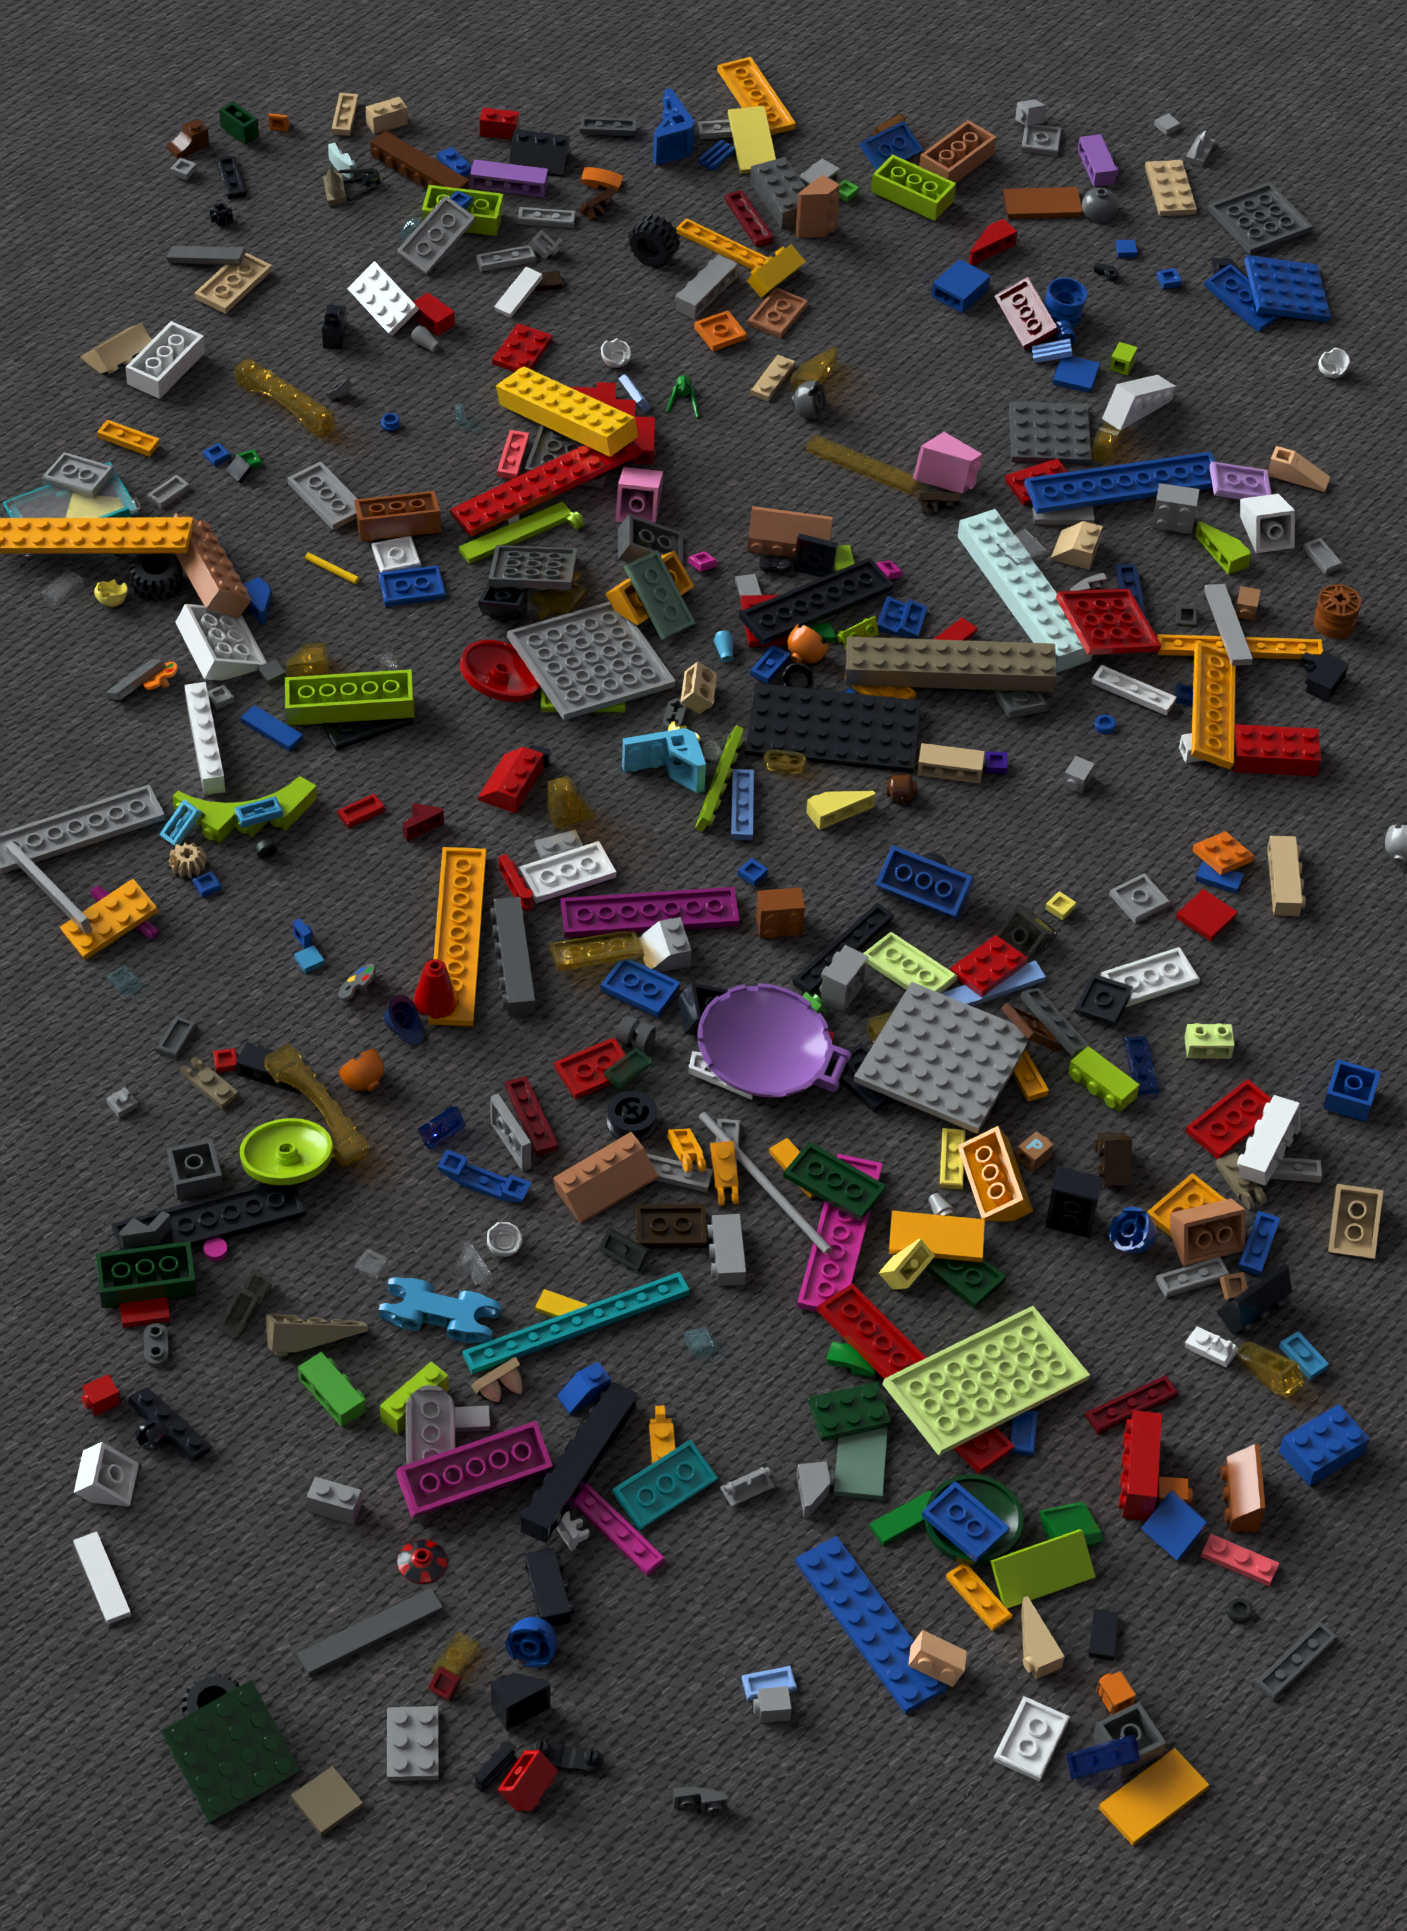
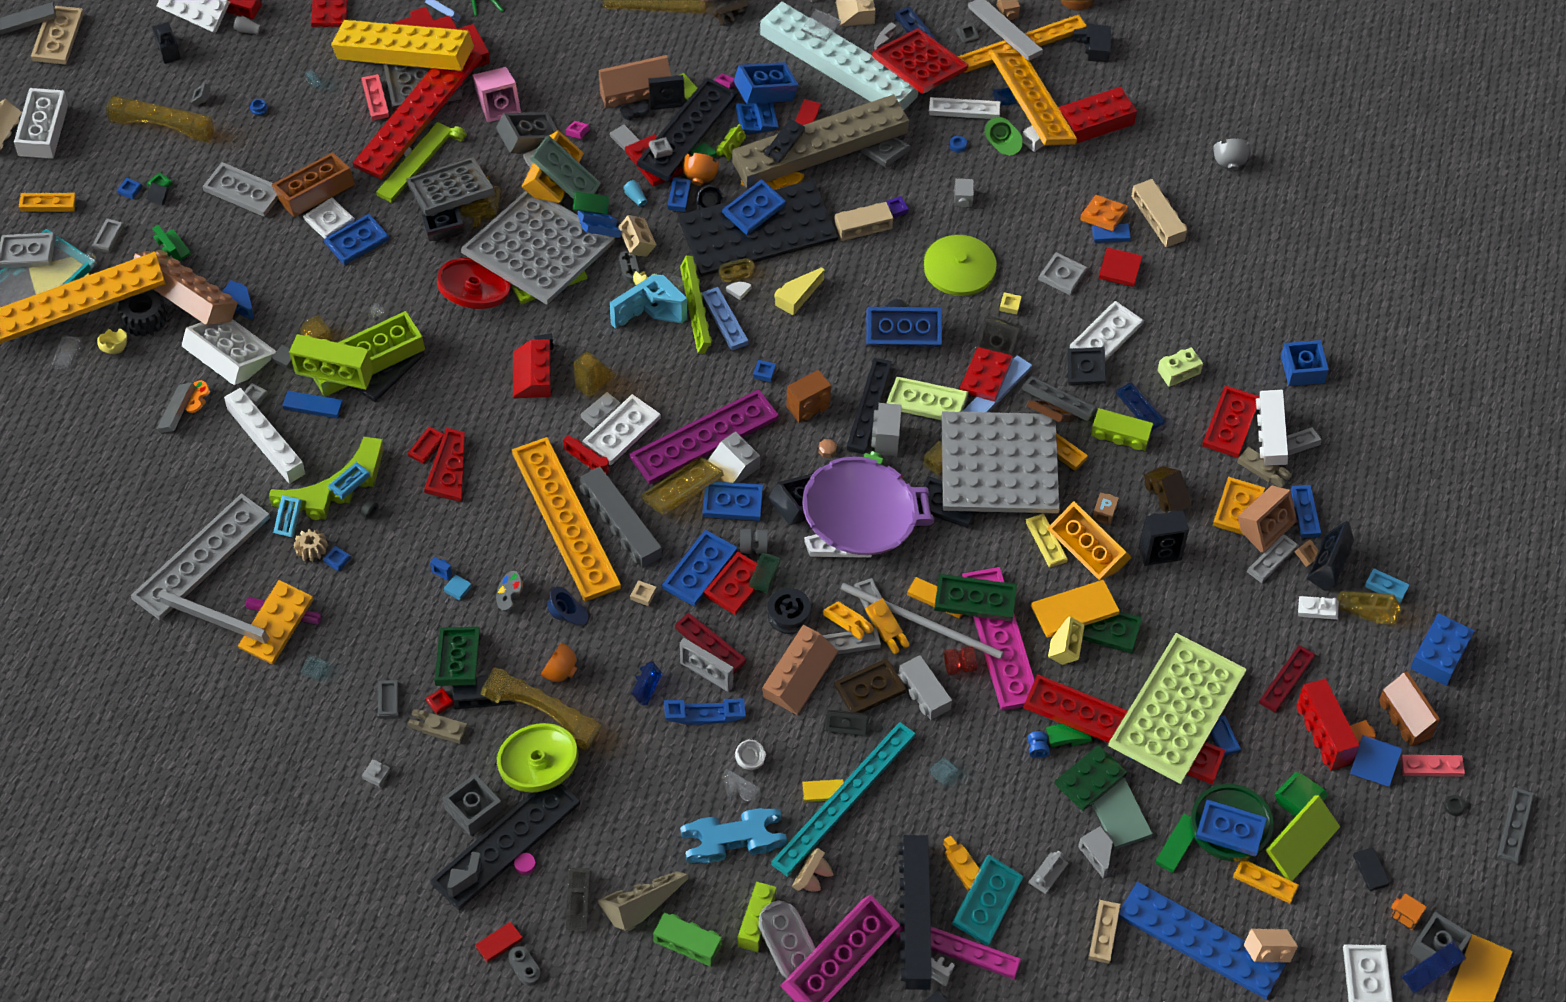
camera: 25 degrees left, 5 degrees up
(146, 1274) = (485, 910): dark green brick -> none
(223, 522) = (171, 243): none -> green bracket
(265, 1022) = (457, 656): none -> dark green plate
(303, 687) = (331, 361): none -> lime brick
(332, 568) = (282, 249): yellow bar -> none
(367, 841) = (447, 469): none -> red wing
(371, 1264) = (656, 821): clear plate -> none
(424, 819) = (482, 433): dark red slope -> none
(435, 991) = (581, 573): red cone -> none
(472, 1419) = (811, 911): light grey tile -> none
(492, 1039) = (643, 593): none -> tan plate
(564, 1037) = (699, 567): none -> blue plate
(584, 1388) = (882, 849): blue slope -> none
(665, 661) = (599, 224): none -> blue slope
(670, 637) = (591, 203): none -> green slope
(769, 1569) = (1104, 931): none -> tan plate
(772, 607) = (660, 147): none -> light grey tile
(773, 974) = (827, 448): none -> nougat tile
(776, 782) = (738, 289): none -> white tile
(781, 1238) = (960, 660): none -> clear red wheel
(815, 1354) = (1038, 742): none -> blue wheel
(838, 704) = (754, 207): none -> blue tile
(901, 788) = (838, 256): reddish brown head -> none
(905, 647) = (784, 140): none -> black plate
(927, 584) = (766, 83): none -> blue brick
(941, 1206) = (1062, 583): light grey cone -> none
(1030, 847) = (959, 265): none -> lime dish
(1039, 1647) = (1332, 900): tan slope -> none
(1133, 1231) = (1214, 541): blue cylinder -> none
(1157, 732) = (1003, 136): none -> bright green piece
(1355, 1221) = (1363, 464): tan slope -> none

